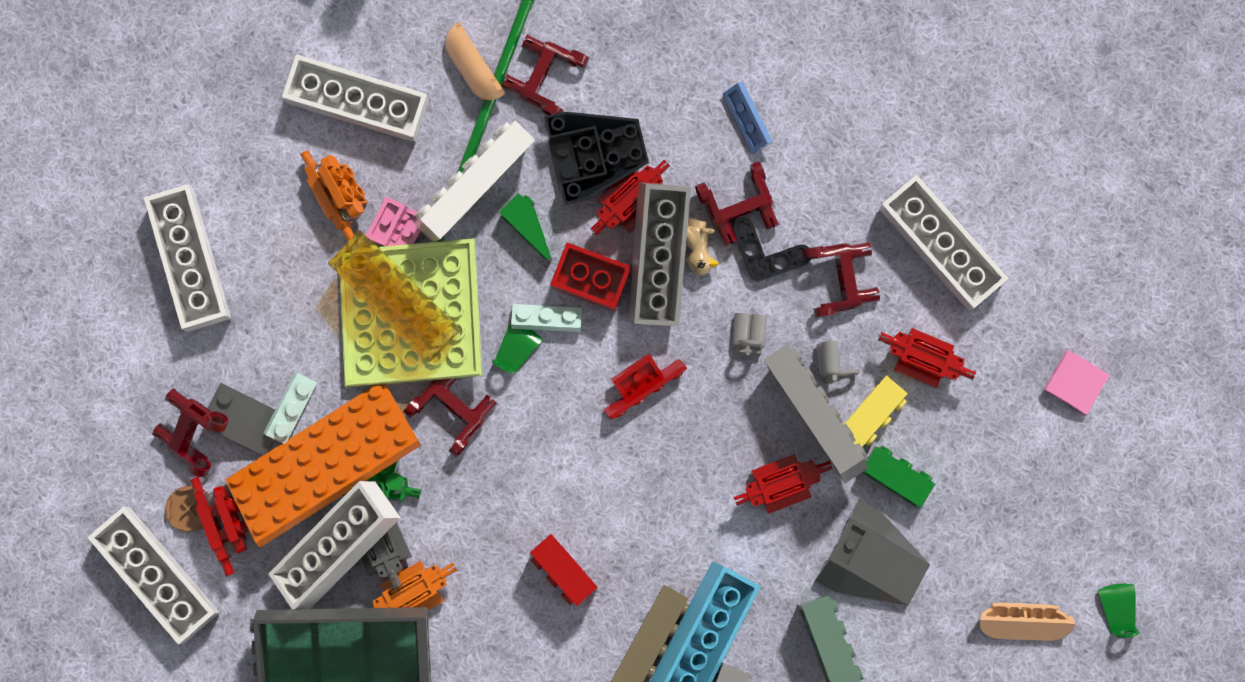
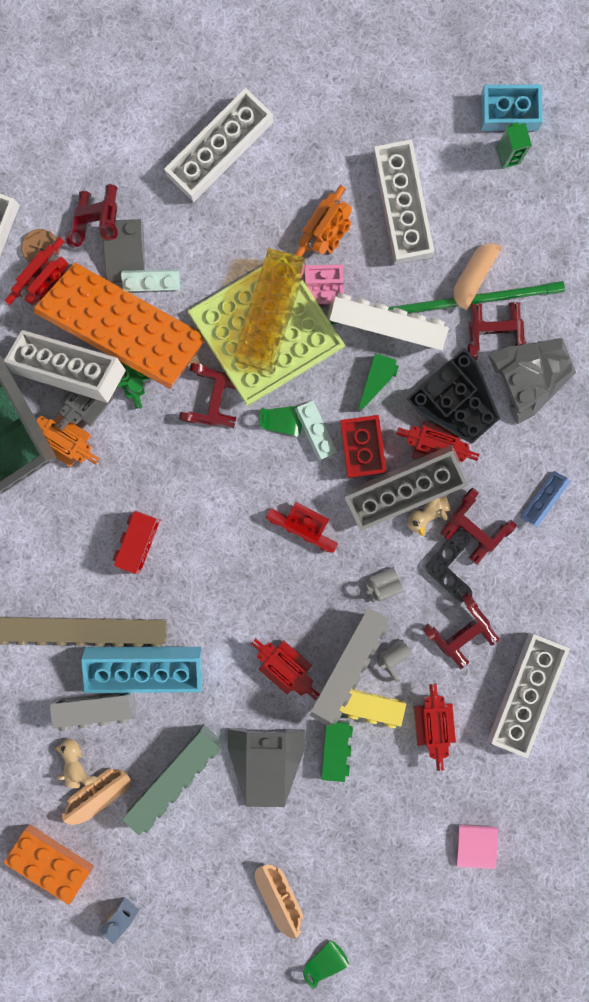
camera: 65 degrees right, 5 degrees up
(609, 61) = (533, 374): none -> dark grey wedge

